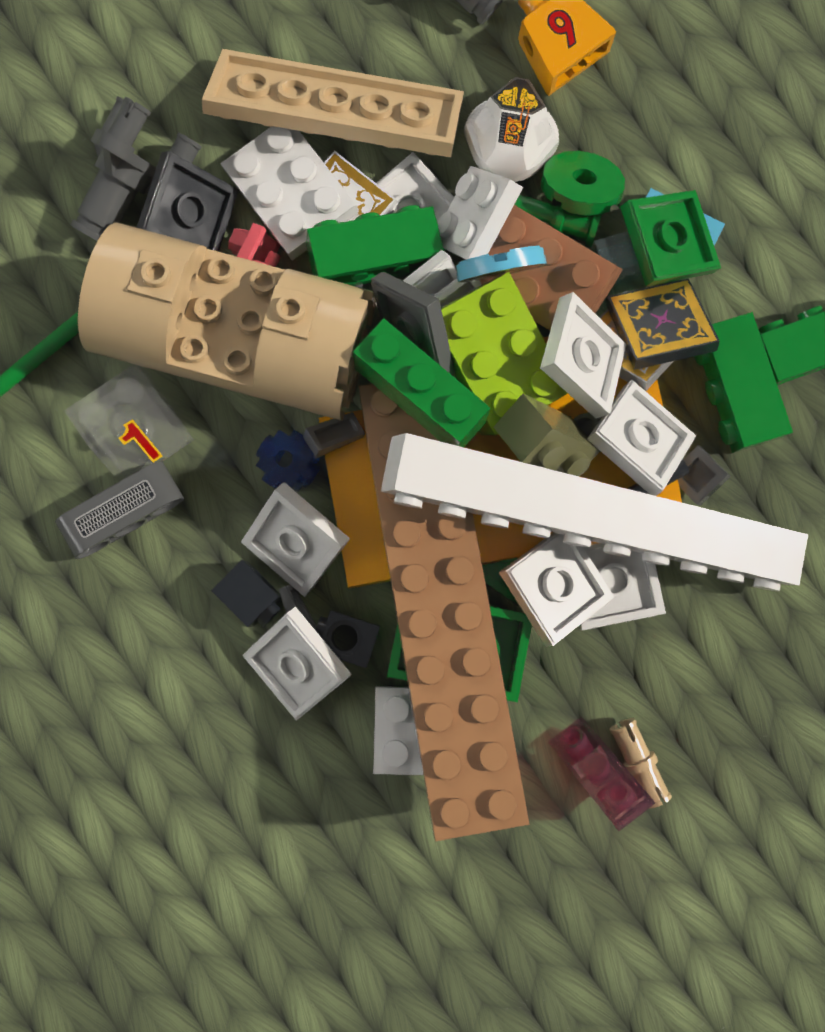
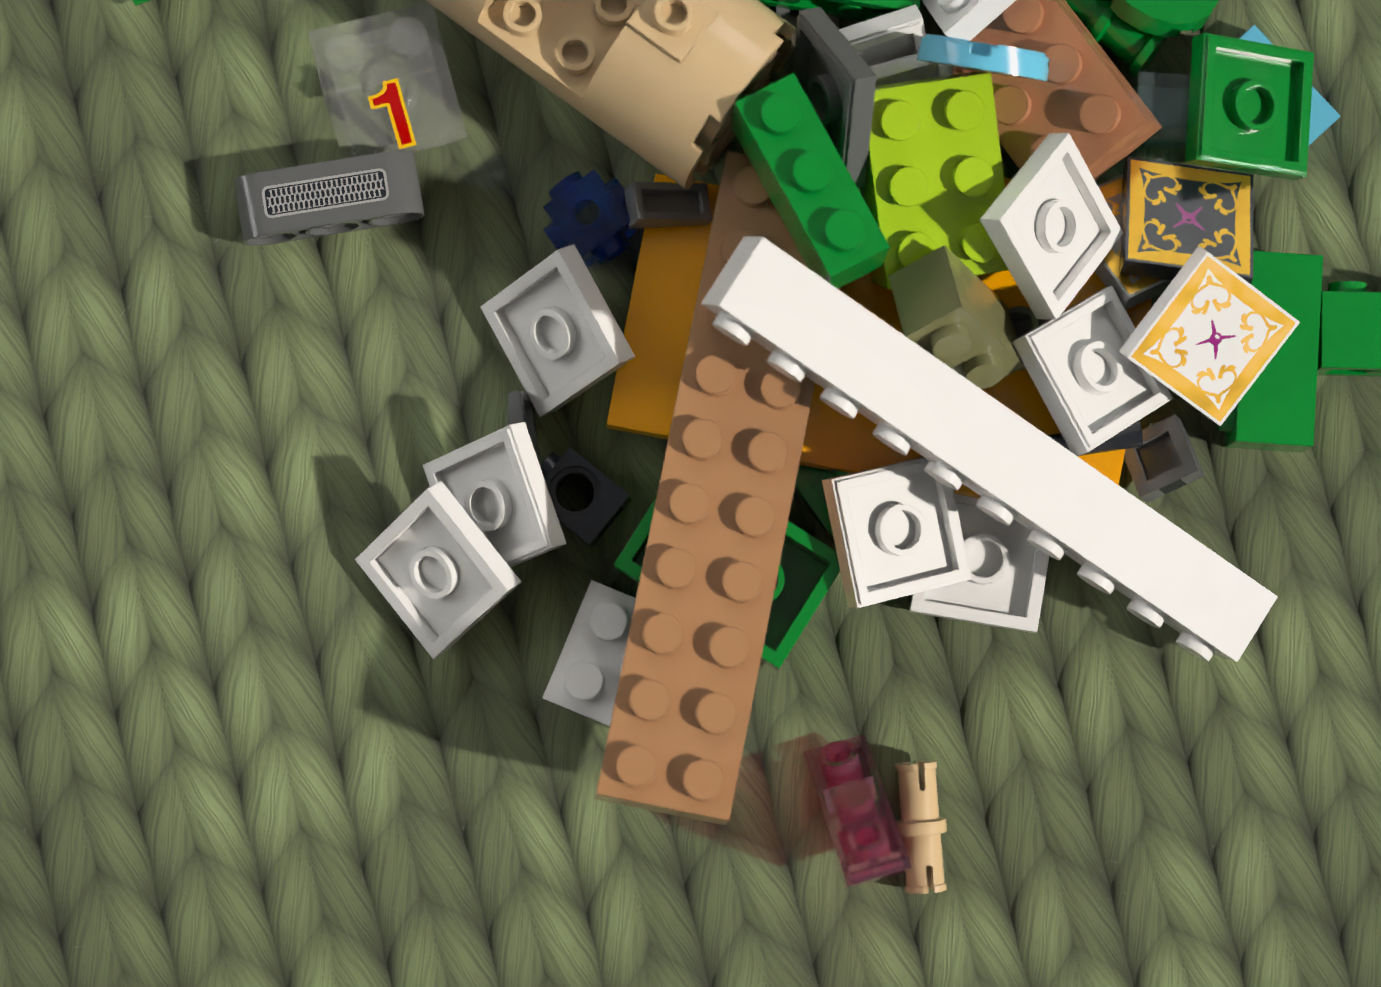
camera: 25 degrees right, 0 degrees up
(248, 595) = (464, 384): black brick -> none
(276, 719) = (437, 570): none -> white plate
(706, 387) = (1209, 336): none -> tile

